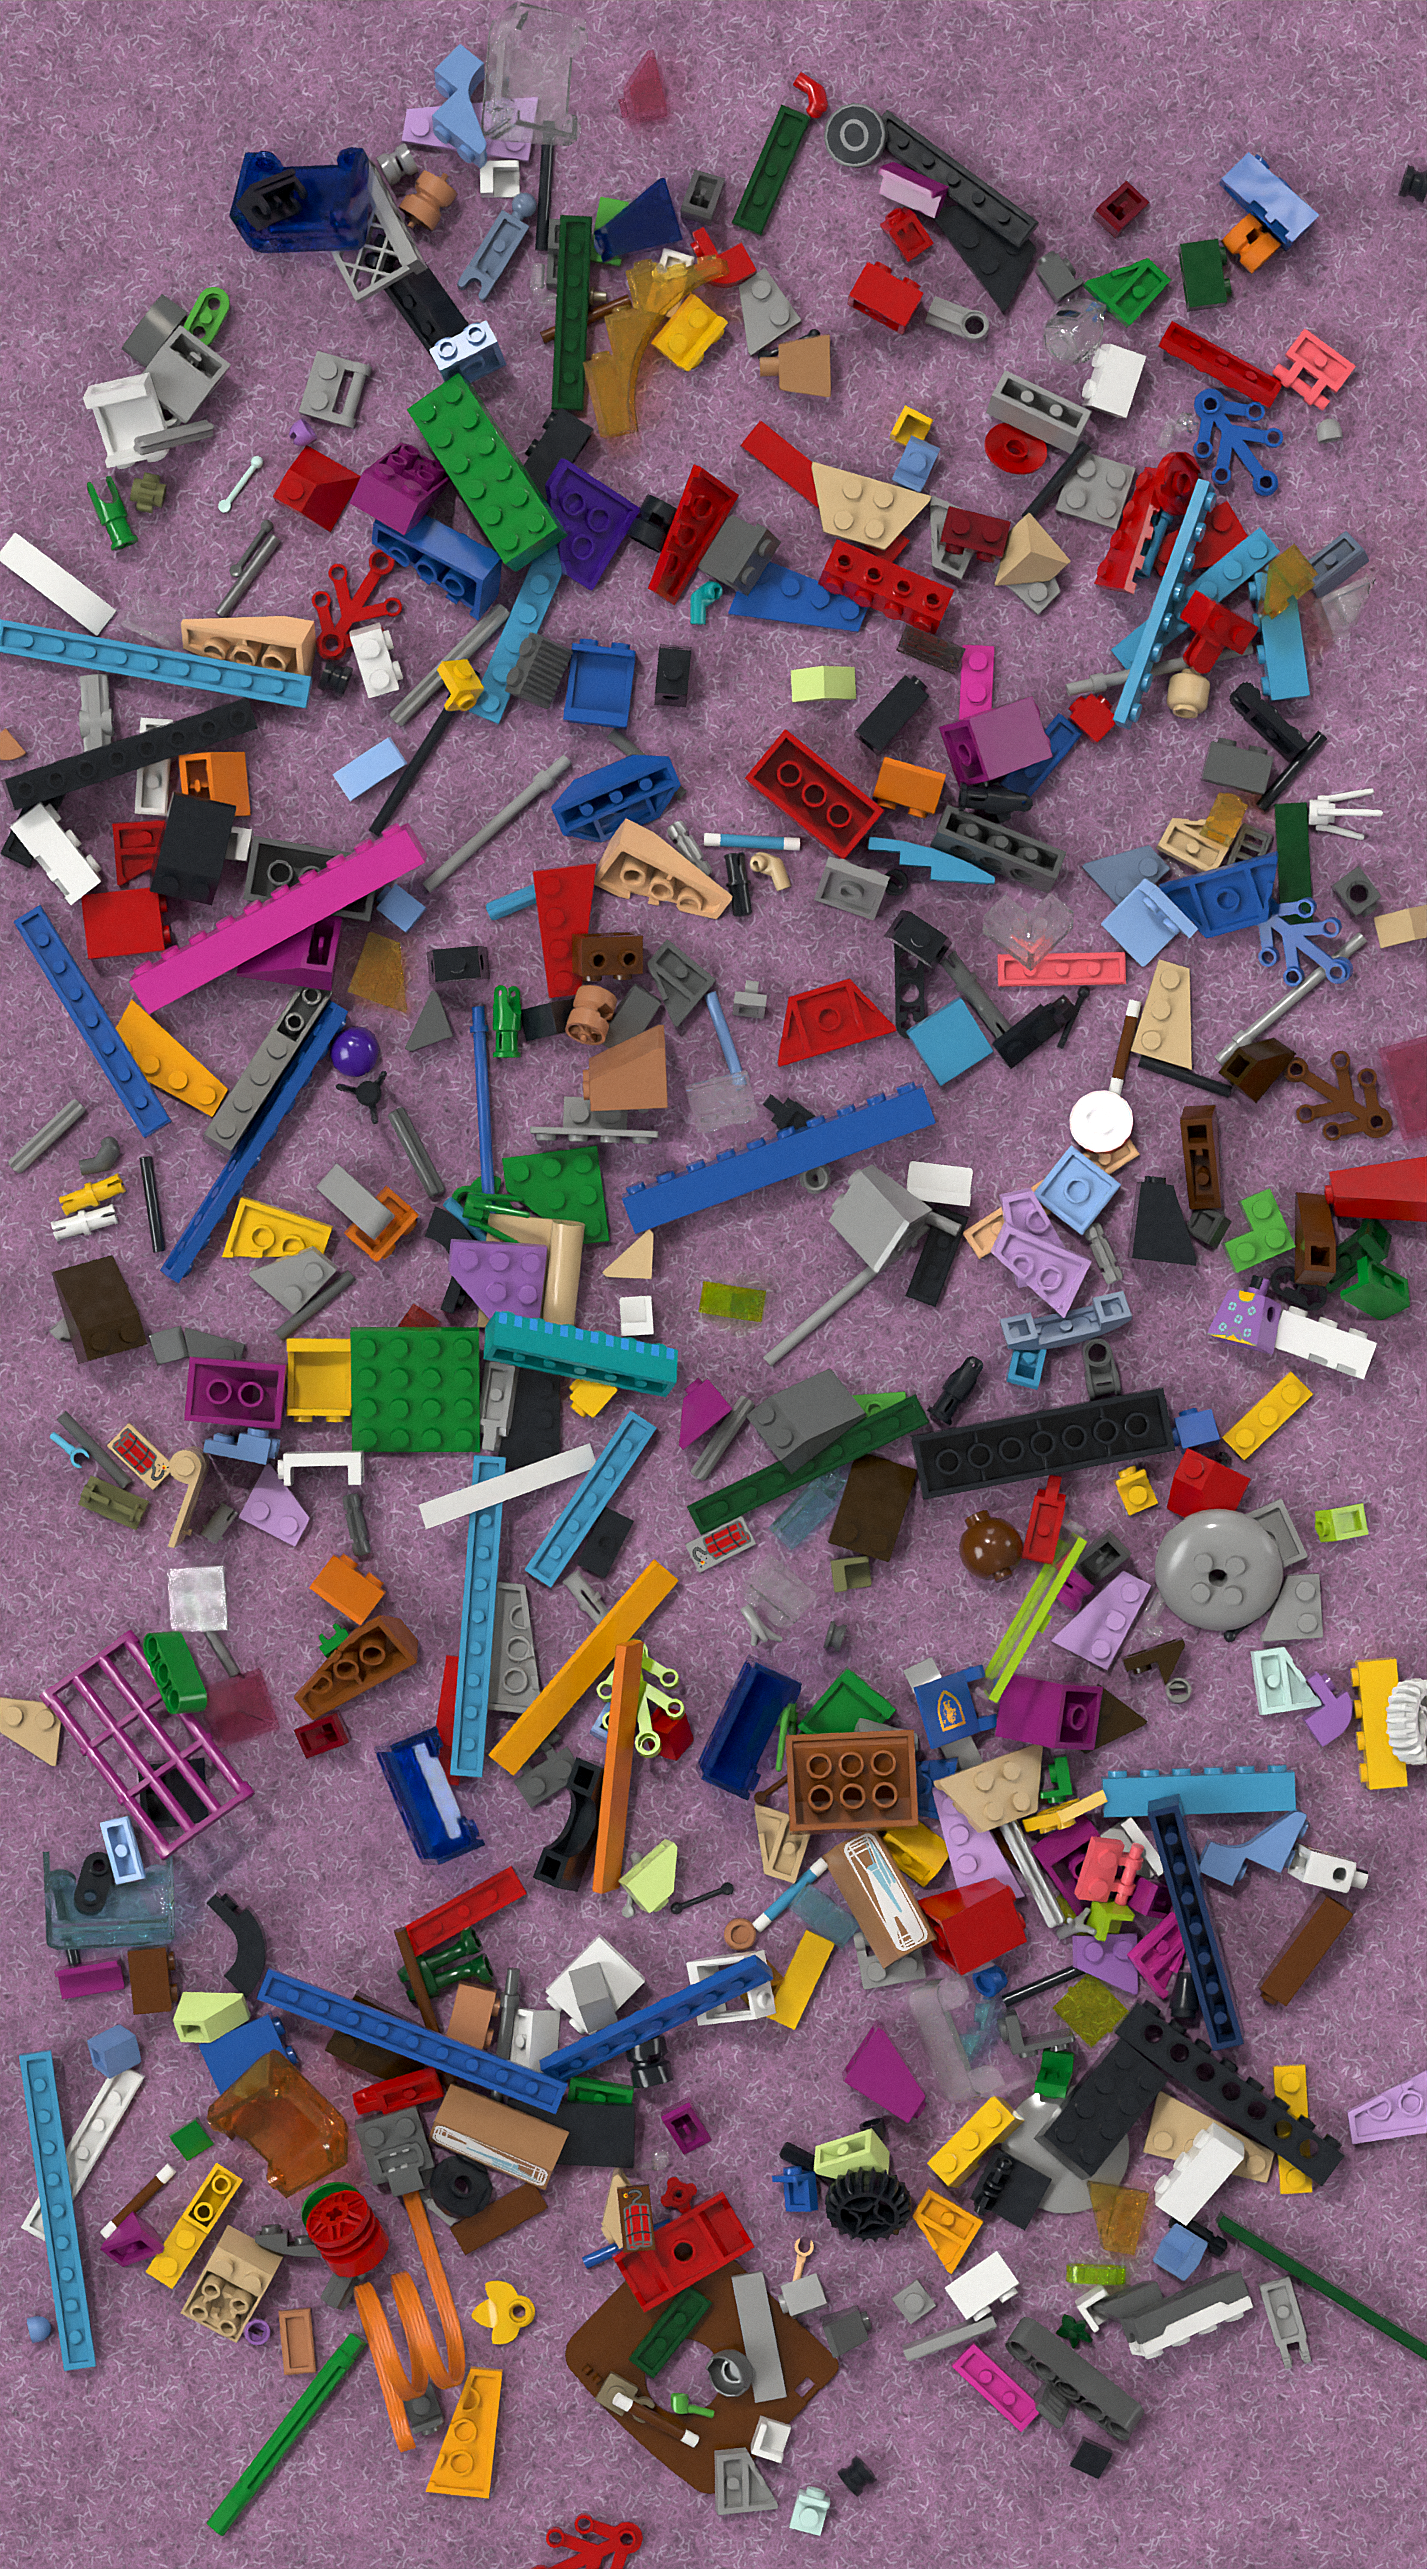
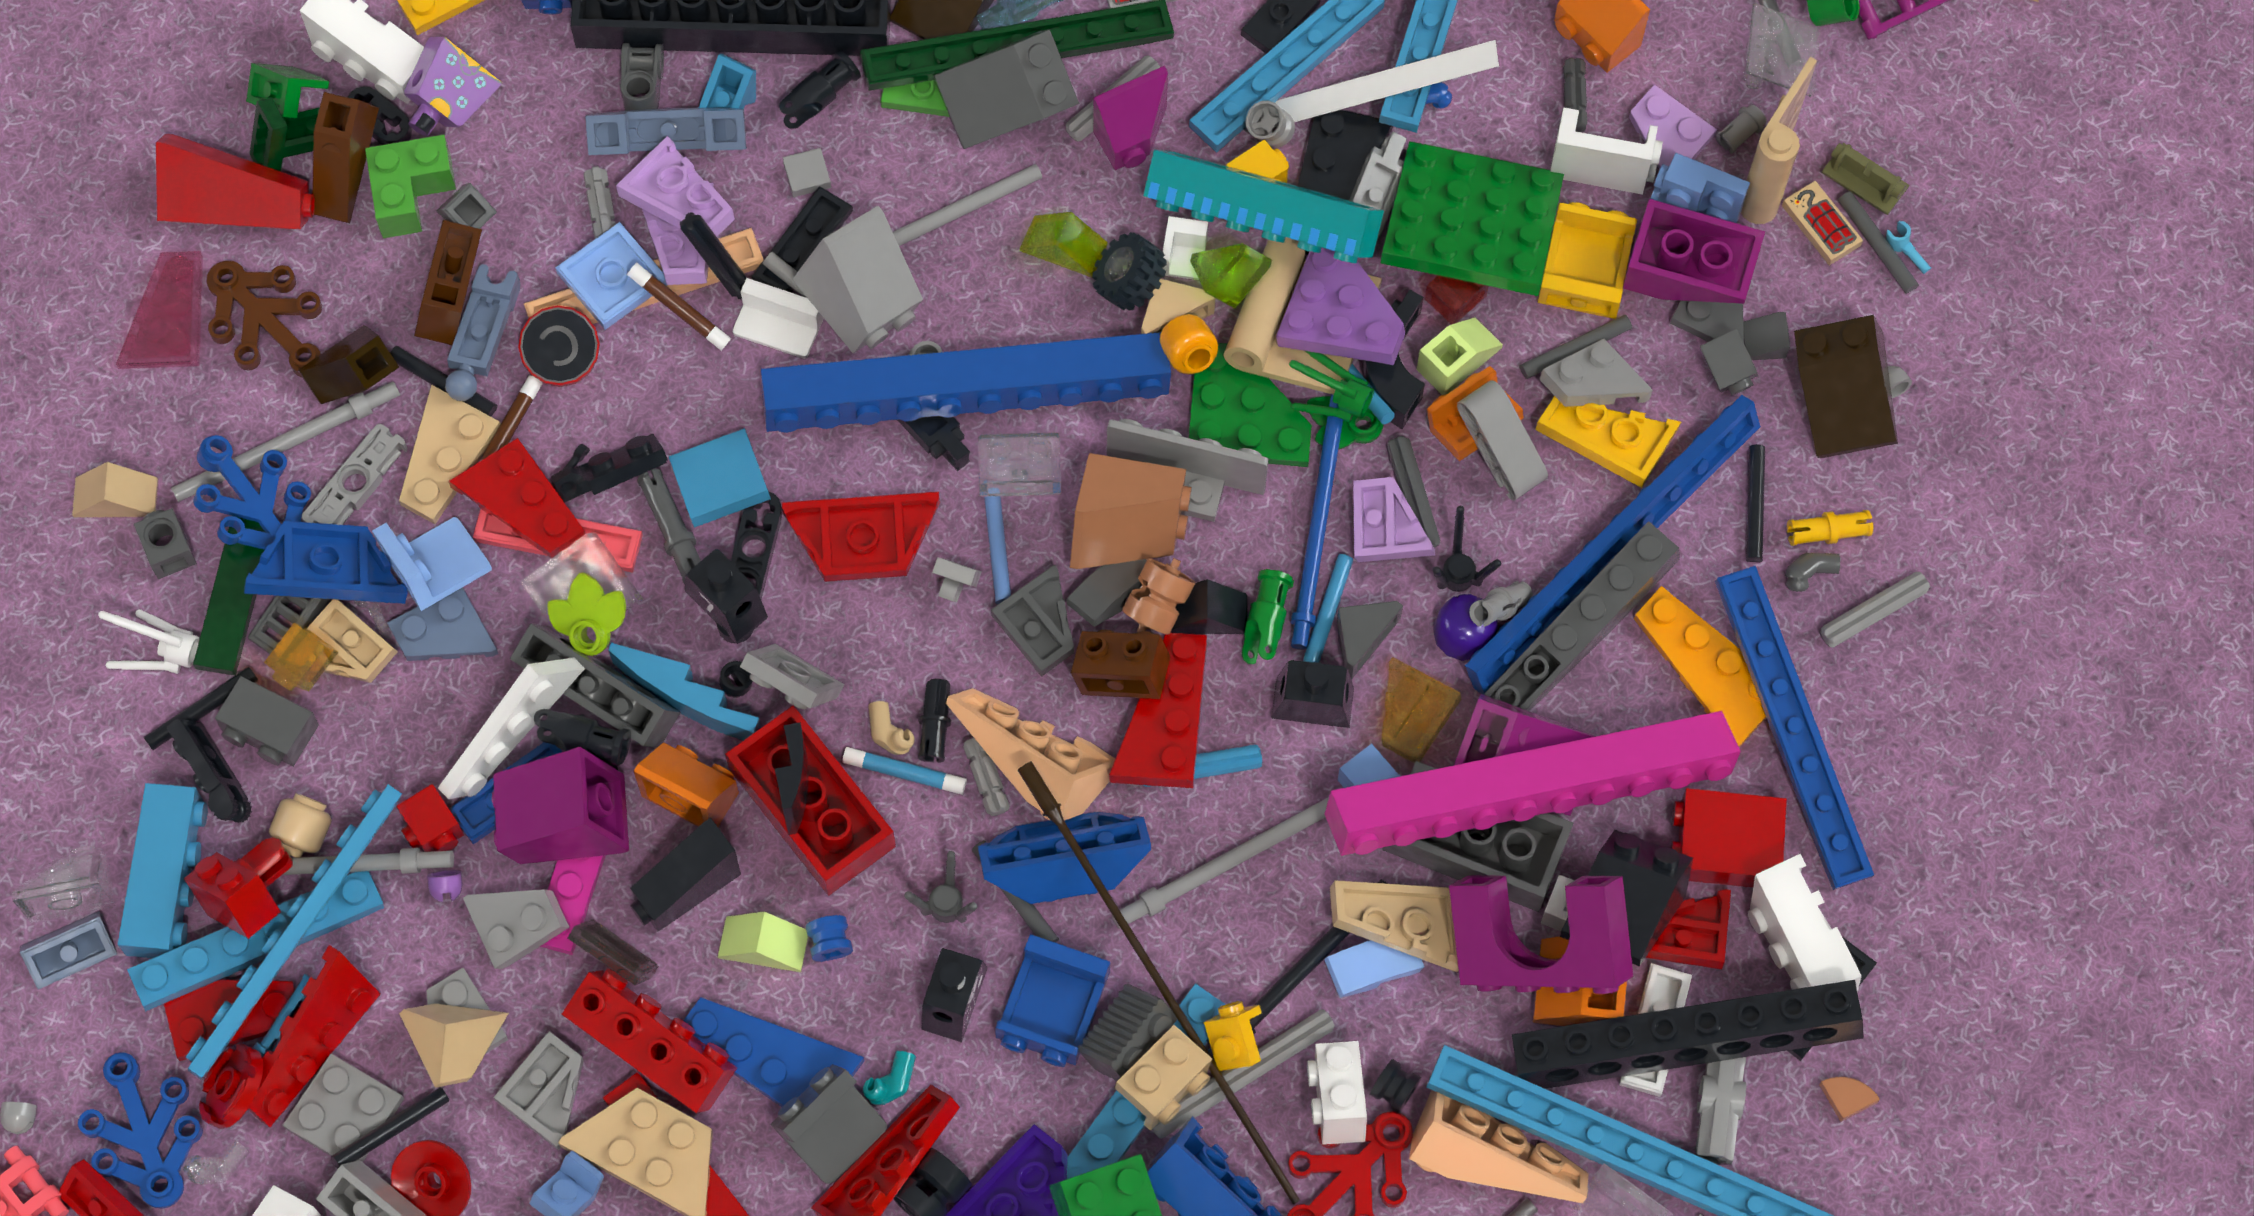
camera: 170 degrees left, 20 degrees down
(84, 1222) = (1845, 498): white pin -> none
(193, 1311) = (1729, 362): none -> dark grey brick
(280, 785) = (1495, 957): none -> magenta arch
(330, 1068) = (1500, 603): none -> light grey pin
(356, 804) = (1398, 916): none -> tan wing
(403, 1274) = (1456, 354): none -> yellowish green slope
(431, 1119) = (1386, 523): none -> lavender wing
(462, 1040) = (1328, 608): none -> dark azure bar
(503, 640) = (1165, 1077): none -> tan bracket
(597, 1292) = (1230, 271): none -> clear neon green slope
(597, 1432) = (1263, 119): none -> light grey wheel
(613, 1226) = (1189, 344): none -> light orange head
(629, 814) = (1053, 812): none -> dark brown piece
(673, 1280) = (1129, 271): none -> black wheel
(695, 742) = (945, 900): none -> dark grey plant
(774, 696) = (829, 938): none -> blue wheel
(823, 782) = (794, 779): none -> black slope
(948, 1318) = (806, 172): none -> light grey tile
(974, 534) = (515, 1078): dark red bracket -> none
(996, 1214) = (714, 253): none -> black axle
(1009, 656) = (515, 922): none -> light grey wing
(1017, 898) = (587, 608): none -> lime plate
(1017, 1174) = (678, 306): none -> reddish brown bar
(1049, 795) = (509, 723): none -> white wing
(1069, 674) = (445, 882): none -> medium lavender hinge
(1095, 989) = (522, 497): none -> red wing
(1158, 1225) = (525, 205): black slope -> none
(1164, 1117) = (480, 331): none -> sand blue plate
(1221, 998) = (369, 459): none -> light grey piece
(1282, 578) = (132, 913): clear yellow slope -> none

